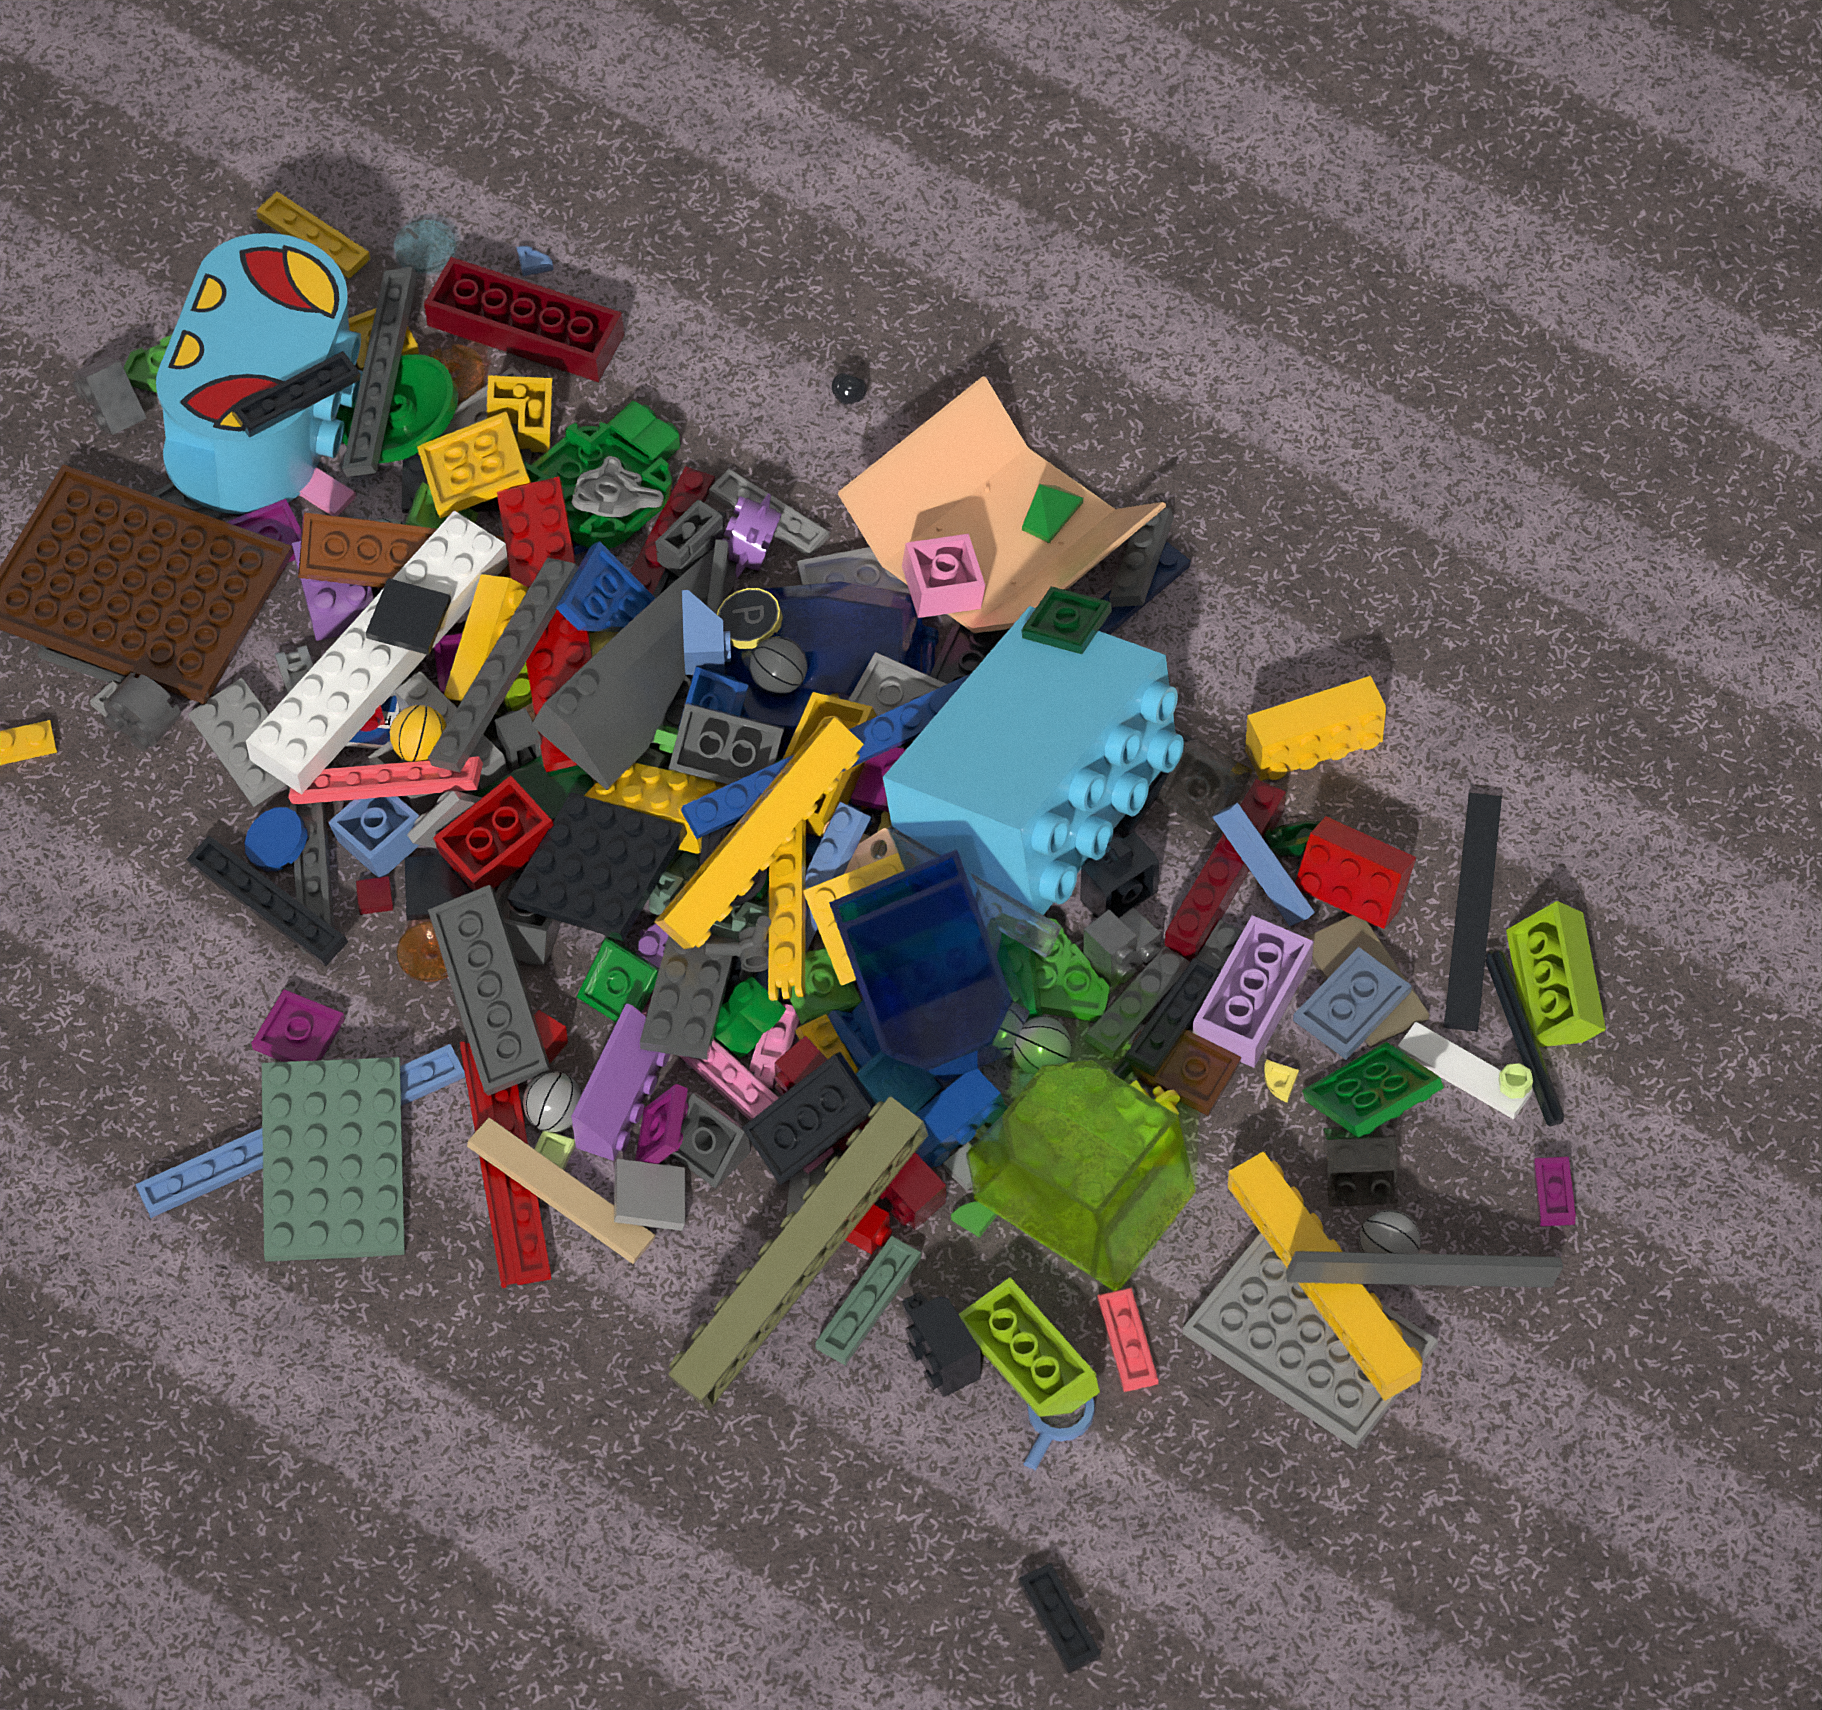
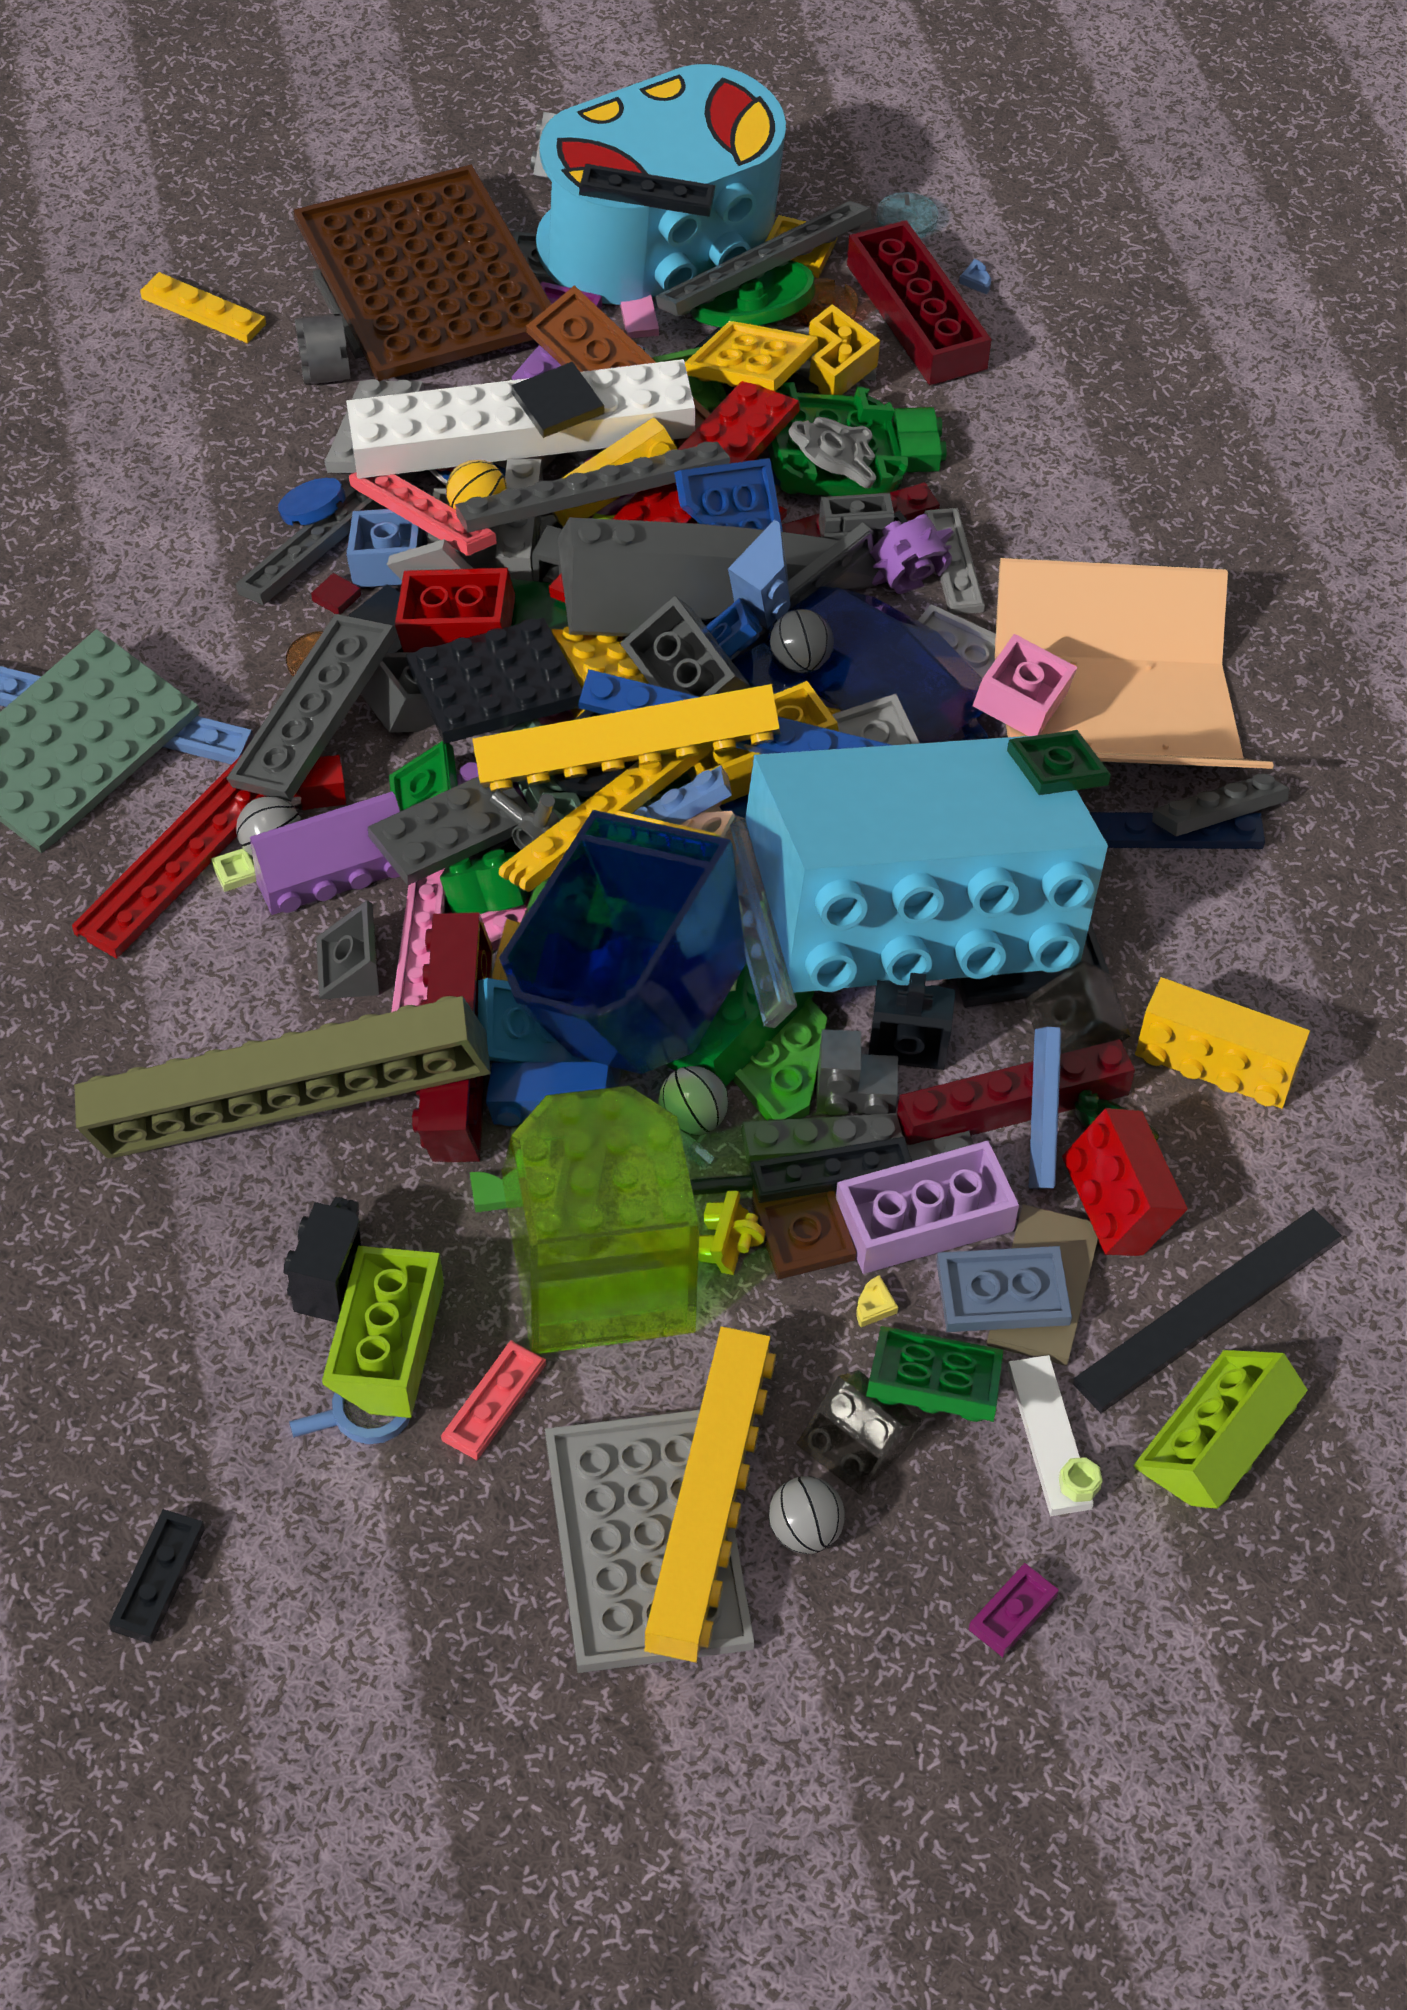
camera: 40 degrees right, 5 degrees down
(267, 900) = (250, 535): black plate -> none
(297, 222) = (834, 154): yellow plate -> none
(297, 1029) = (164, 637): magenta plate -> none
(559, 1189) = (196, 898): tan tile -> none
(649, 1194) = (255, 955): light grey tile -> none
(662, 1125) = (313, 918): magenta plate -> none
(750, 617) = (829, 594): black tile -> none
(810, 1118) = (417, 974): black tile -> none
(848, 389) = (1118, 519): black piece -> none
(868, 1300) = (324, 1180): sand green plate -> none
(871, 1230) = (390, 1122): red brick -> none
(1050, 511) = (1182, 714): green slope -> none
(1423, 1269) = (799, 1563): dark grey tile -> none
(1524, 1037) = (1133, 1454): black axle -> none

